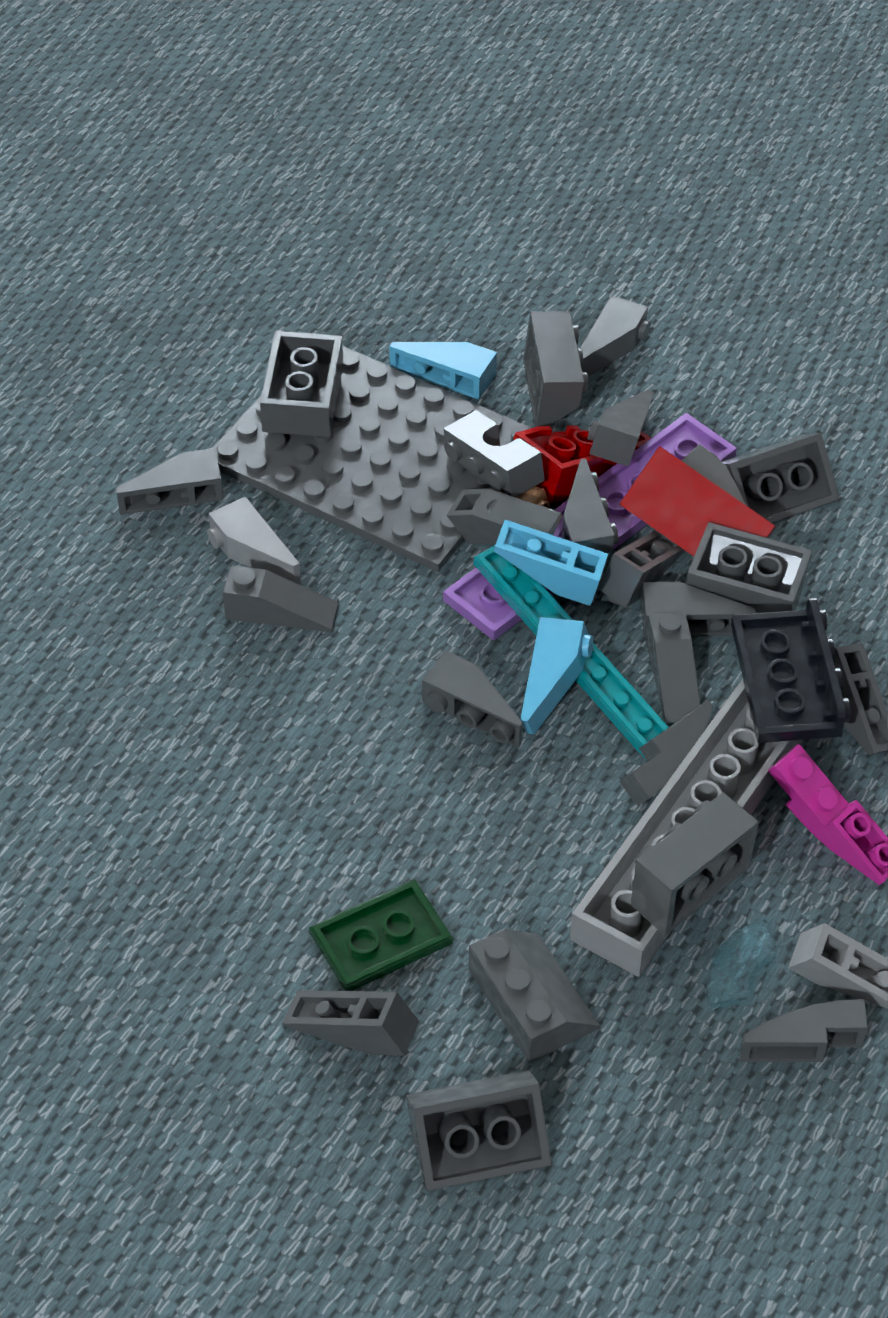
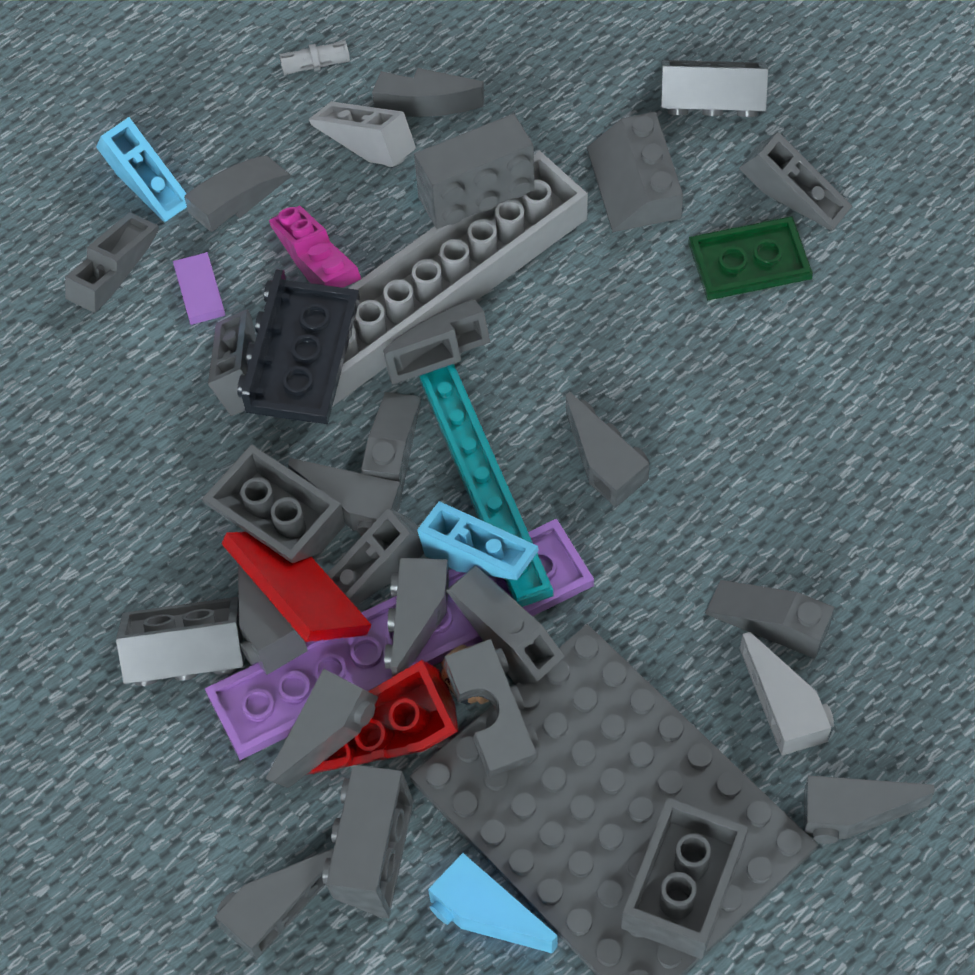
camera: 160 degrees left, 10 degrees up
(554, 667) = (512, 442): medium azure slope -> none

